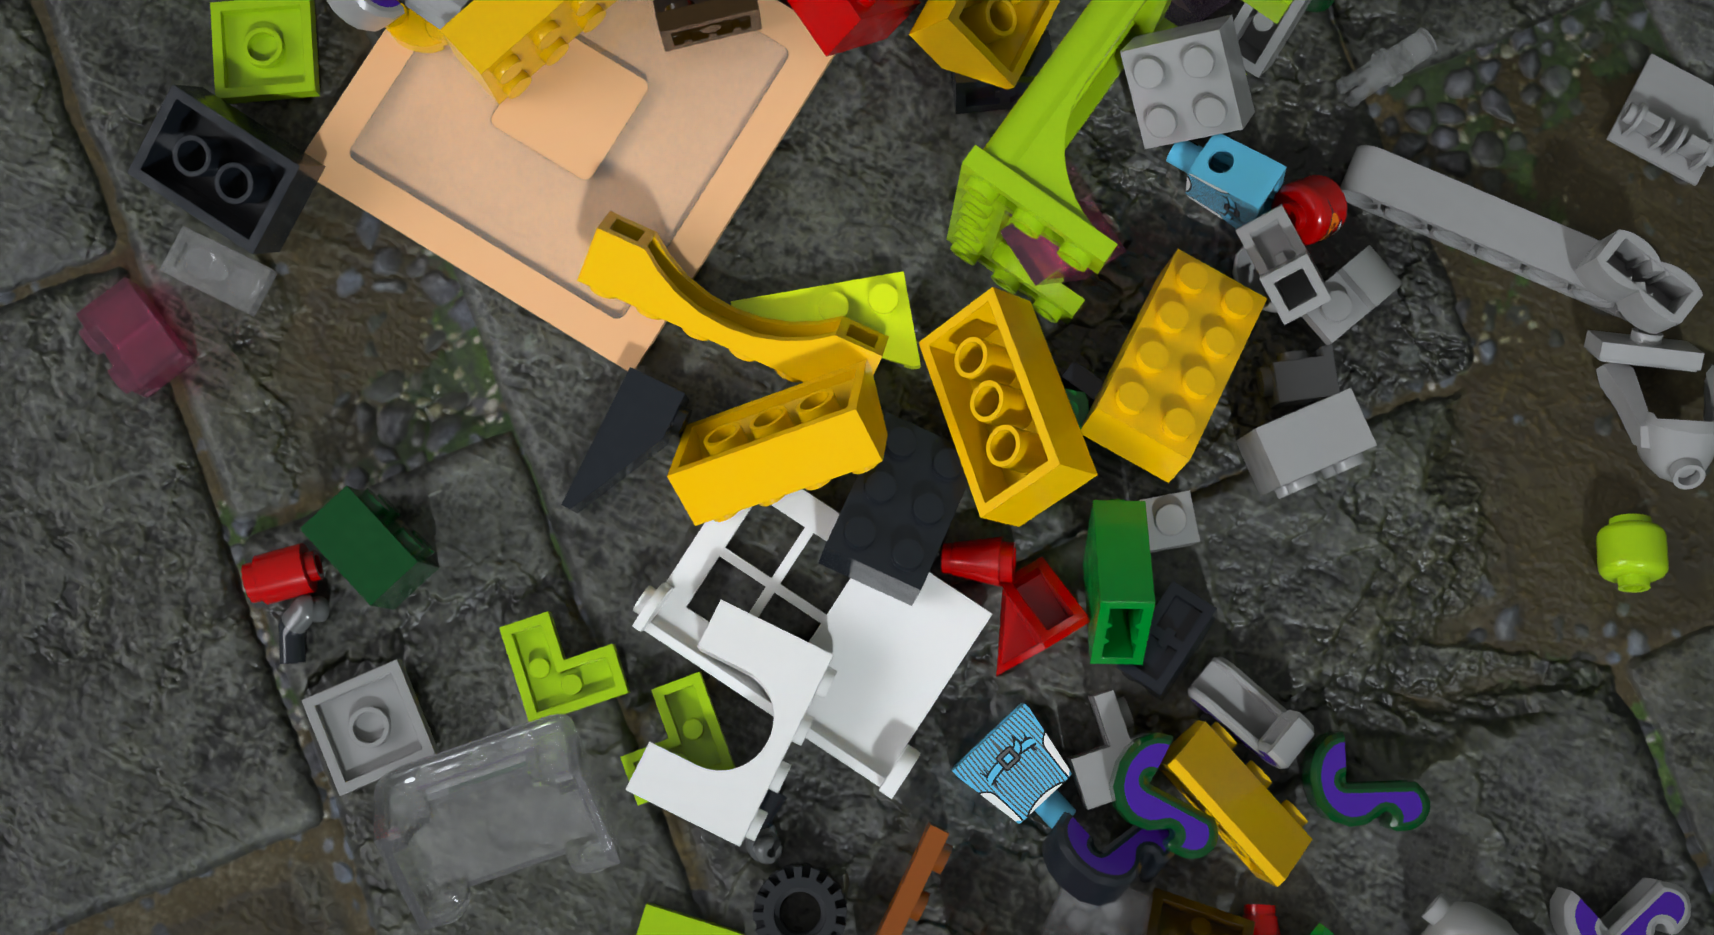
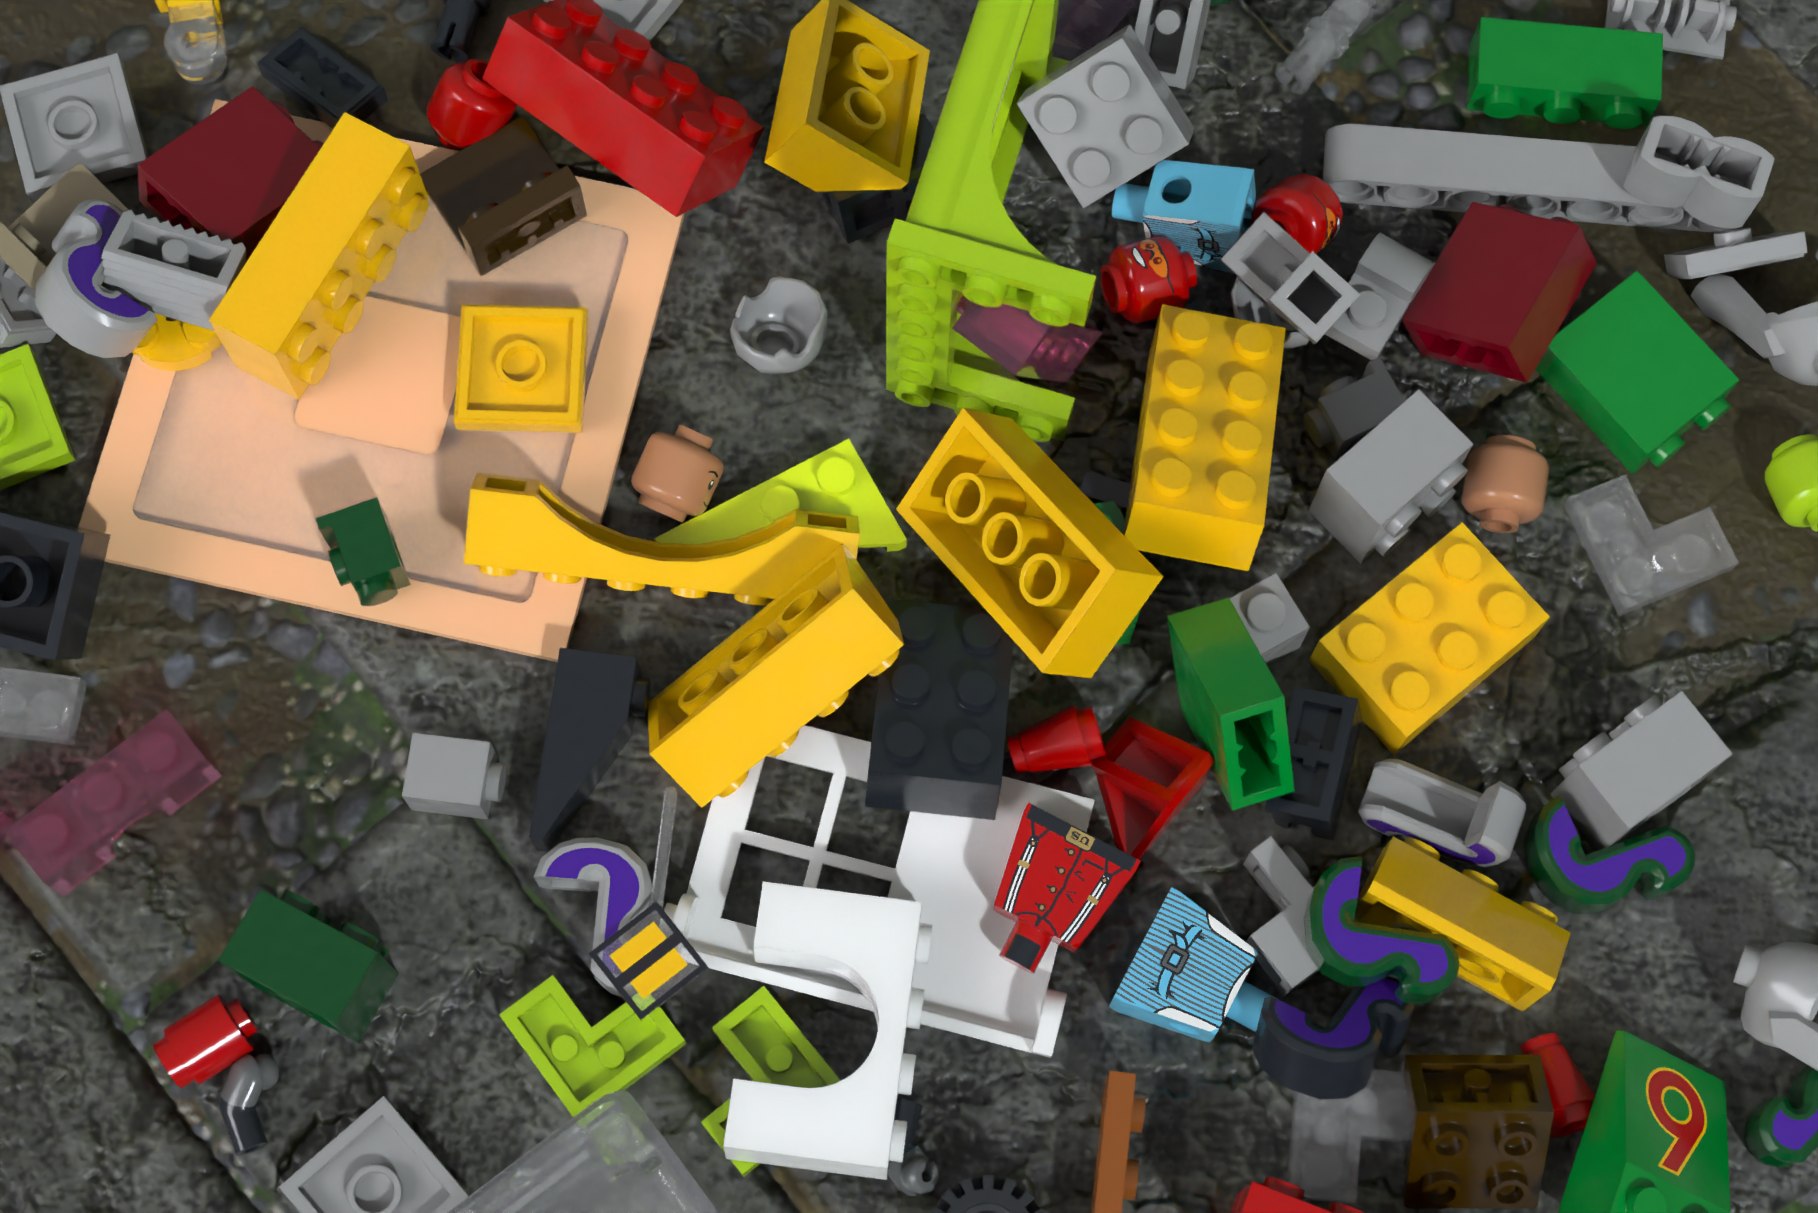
camera: 20 degrees left, 10 degrees down
(243, 379) = (76, 826): none -> clear pink arch
(509, 244) = (365, 551): none -> dark green brick
(522, 435) = (452, 776): none -> light grey brick
(614, 579) = (604, 867): none -> animal
(620, 623) = (649, 954): none -> piece
(672, 136) = (521, 368): none -> yellow plate
(764, 257) = (677, 473): none -> nougat head
(880, 166) = (780, 326): none -> light grey hair
(939, 674) = (1056, 886): none -> red torso
(1176, 220) = (1145, 276): none -> red head
(1290, 576) = (1428, 637): none -> yellow brick
(1393, 474) = (1505, 483): none -> nougat head
(1411, 737) = (1644, 769): none -> light grey brick
(1447, 321) = (1500, 290): none -> dark red brick
(1472, 566) = (1642, 562): none -> clear plate
(1529, 421) = (1637, 374): none -> green brick
(1565, 158) = (1564, 72): none -> green brick

